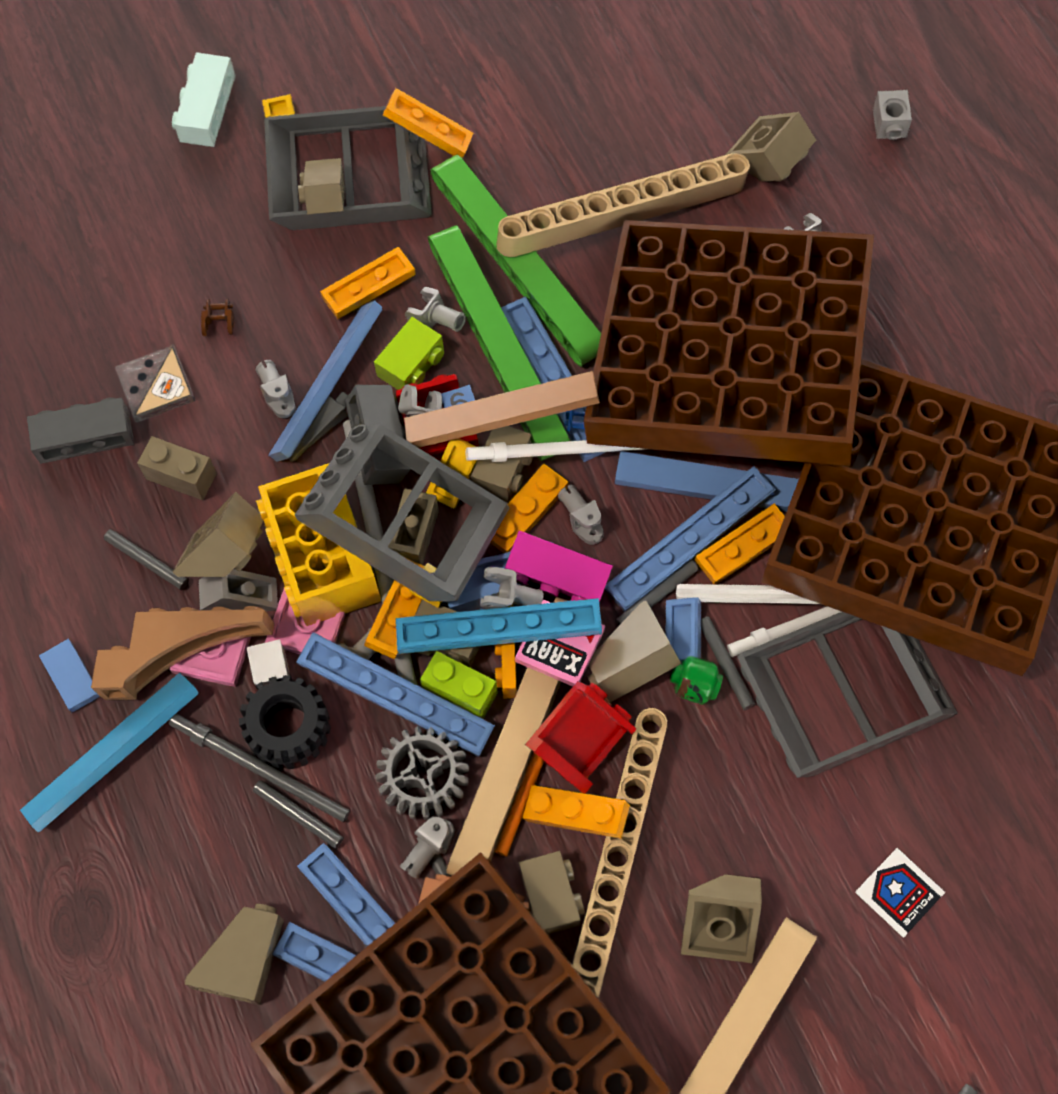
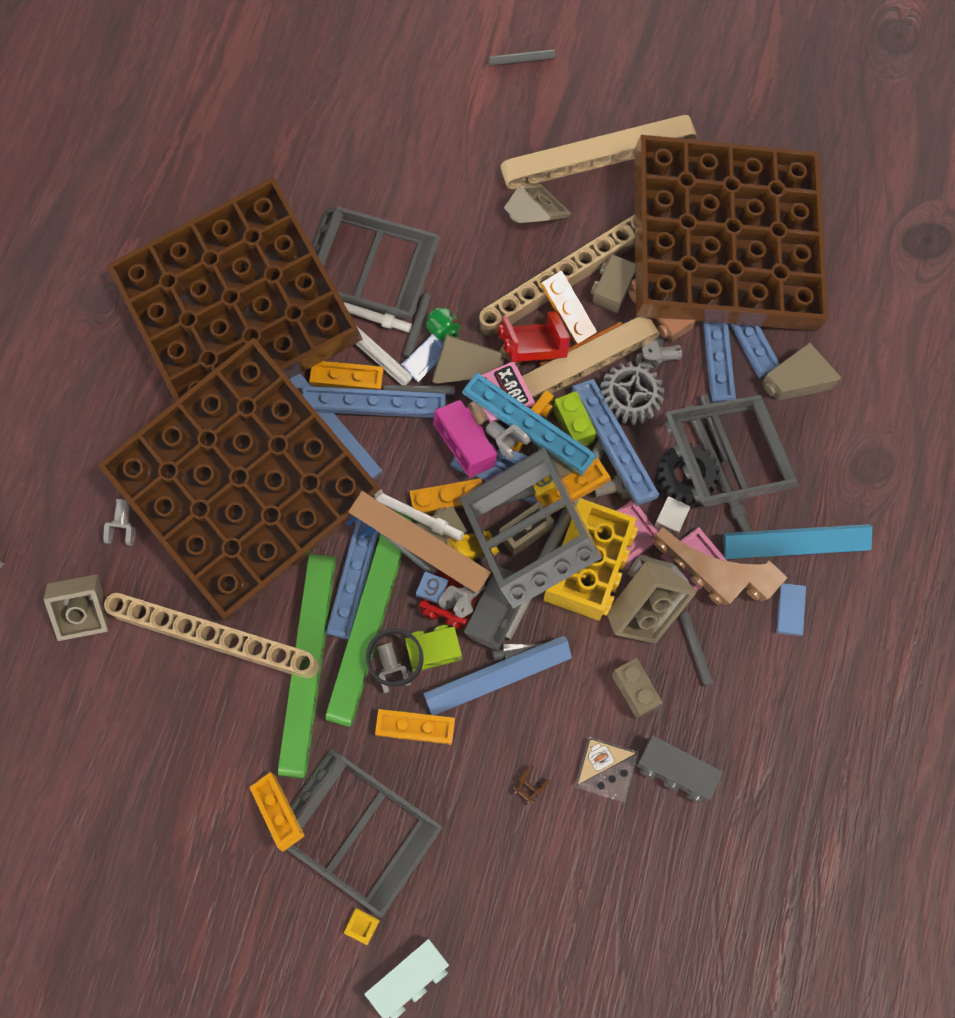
camera: 145 degrees left, 5 degrees up
(276, 390) = (534, 695): light grey piece -> none
(289, 716) = (712, 411): none -> dark grey window
(322, 186) = (387, 819): dark tan brick -> none
(434, 280) = (385, 633): none -> black tyre
(584, 516) = (420, 461): light grey piece -> none
(900, 892) = (438, 159): sticker -> none

